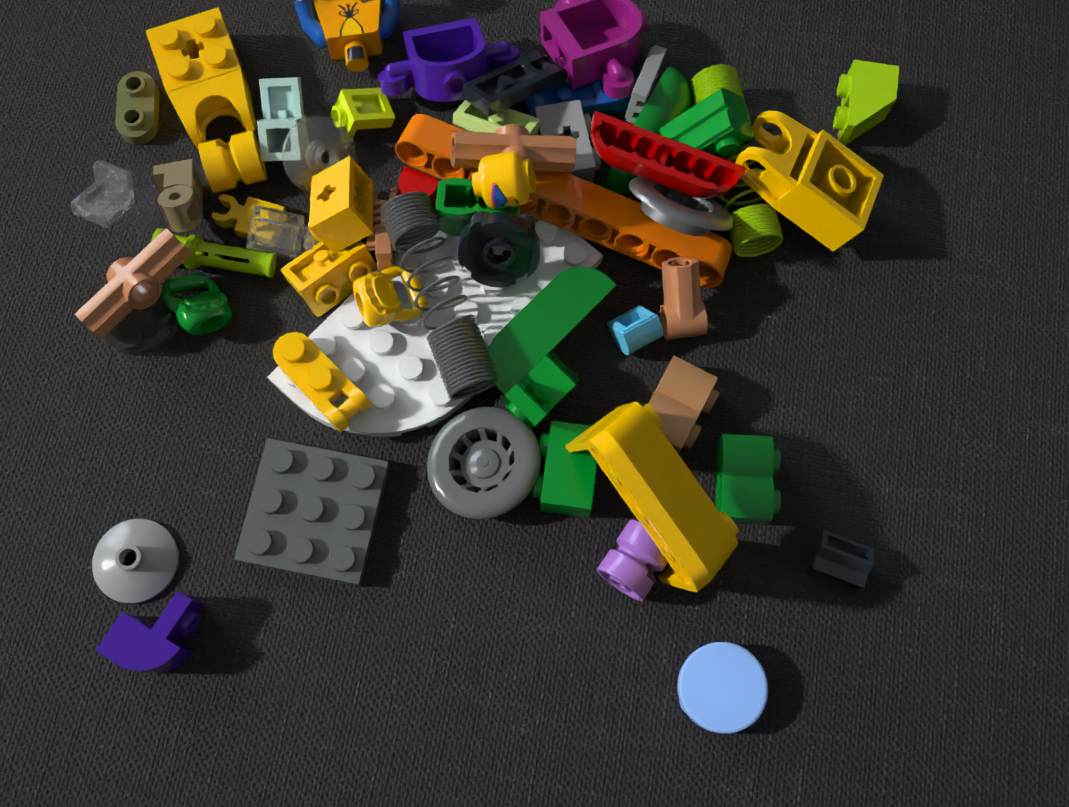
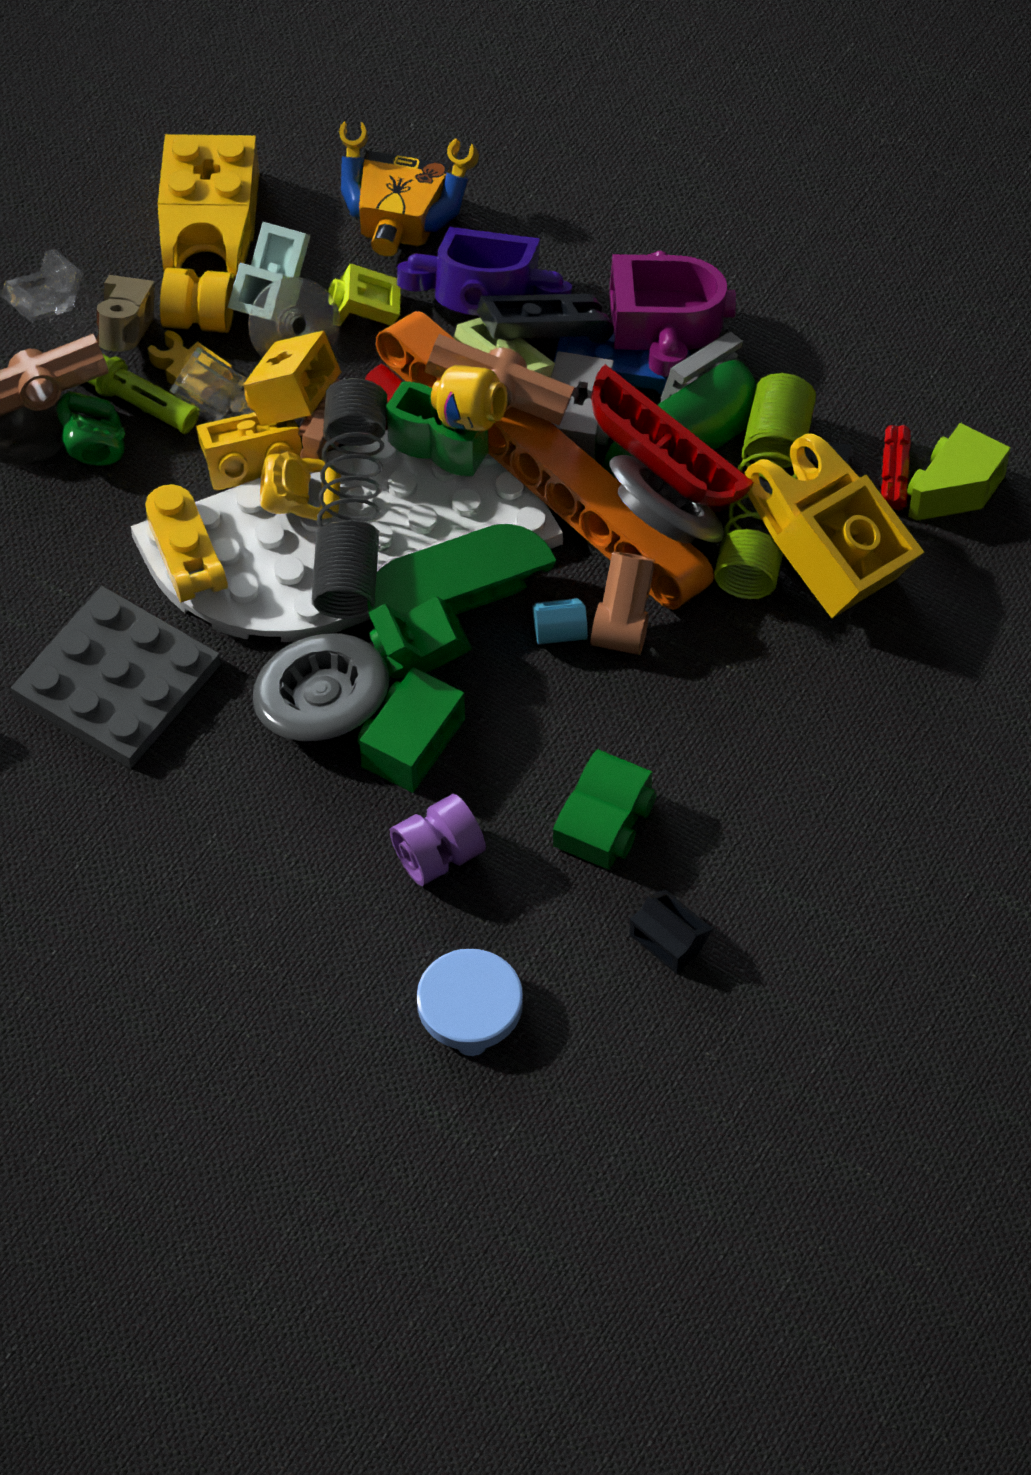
camera: 25 degrees right, 15 degrees down
(140, 104) = (126, 206): olive plate -> none
(504, 230) = (455, 457): black plate -> none
(661, 494) = (483, 762): yellow windscreen -> none
(679, 400) = (564, 710): medium nougat brick -> none
(713, 125) = (743, 428): green brick -> none
(812, 105) = (896, 466): none -> red axle

